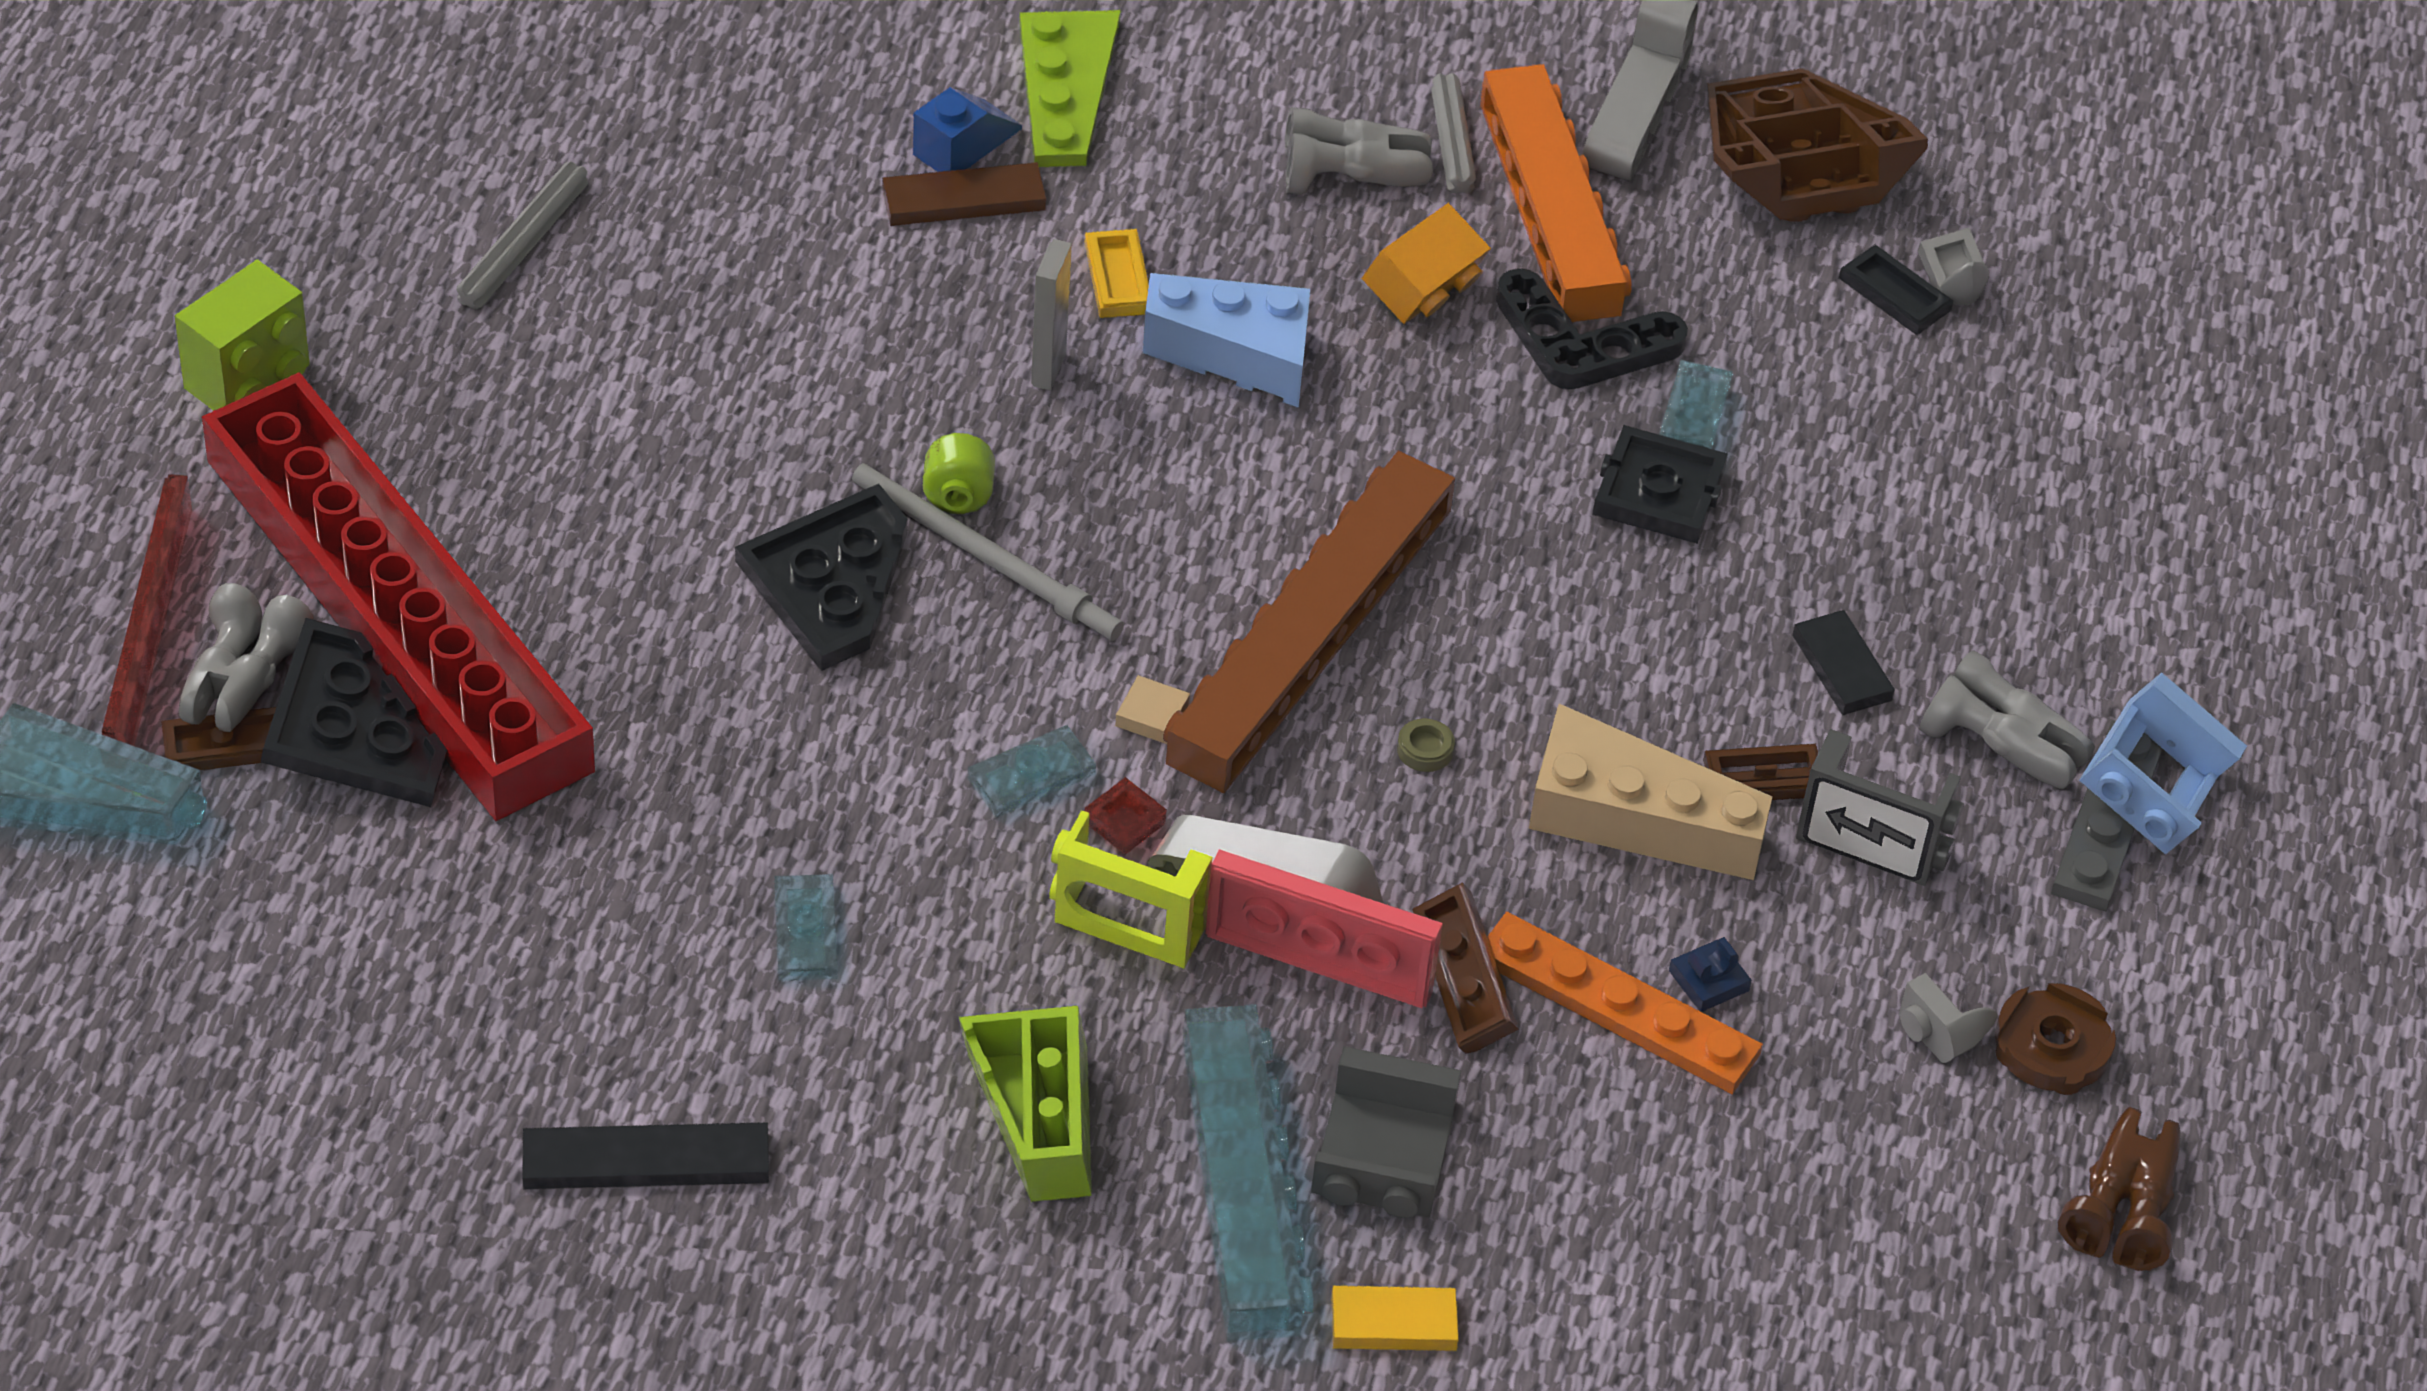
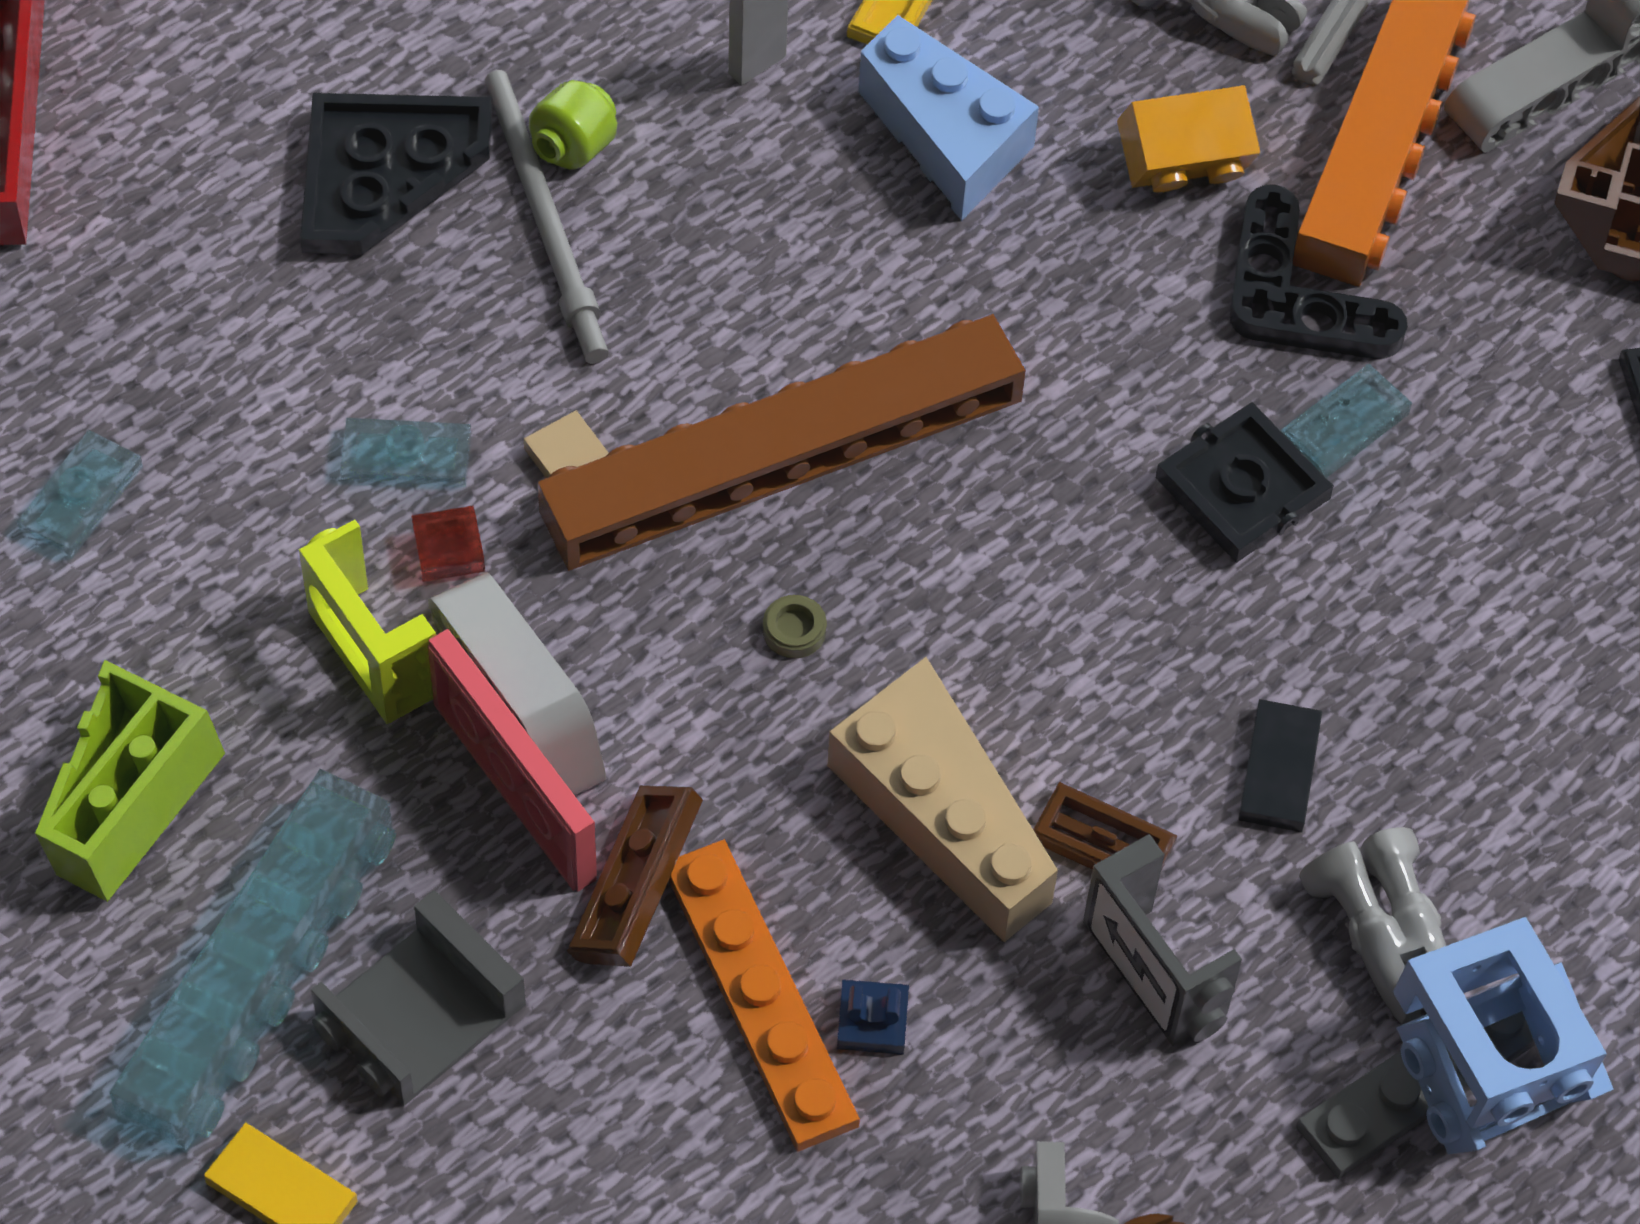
camera: 35 degrees right, 10 degrees up
(2195, 765) = (1502, 1089): none -> light blue panel

